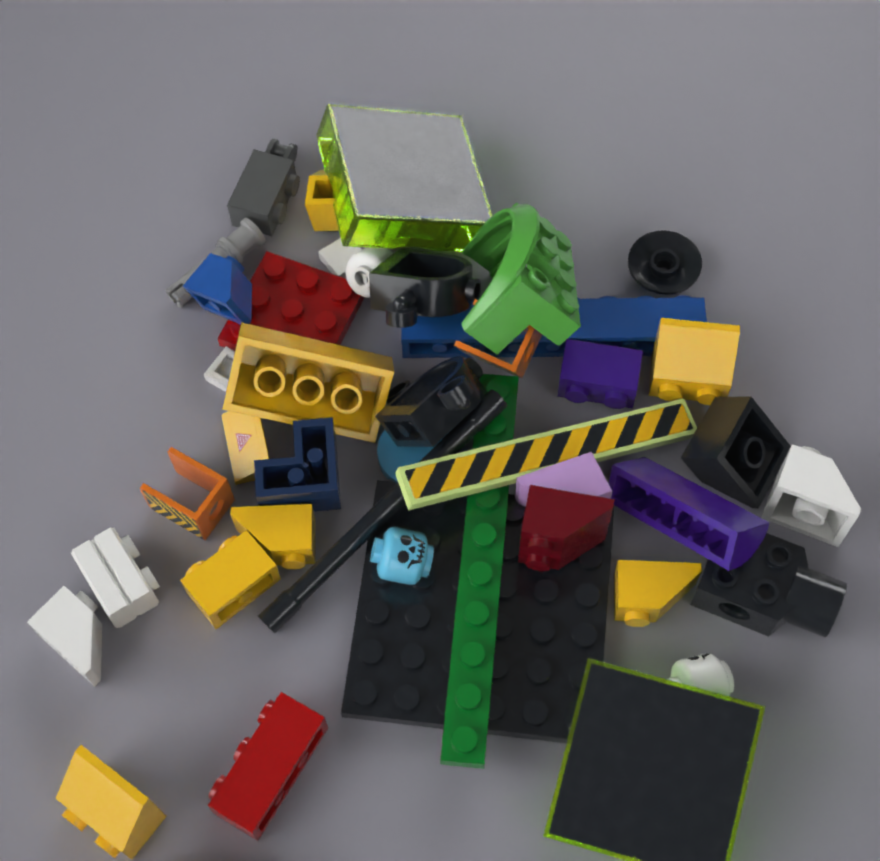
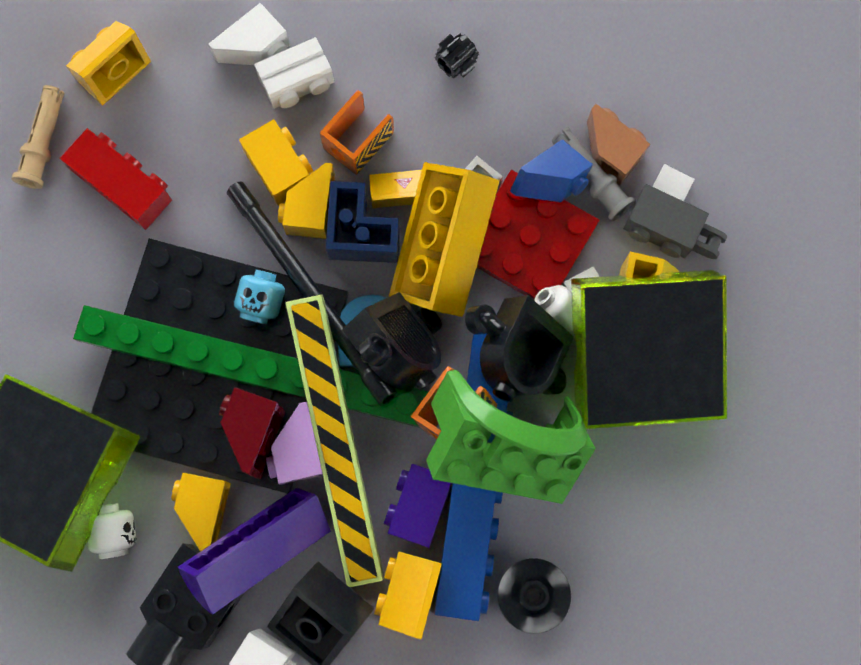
camera: 95 degrees right, 15 degrees up
(86, 405) = (456, 55): none -> black gear
(180, 245) = (614, 144): none -> nougat slope
(218, 195) = (673, 182): none -> white tile

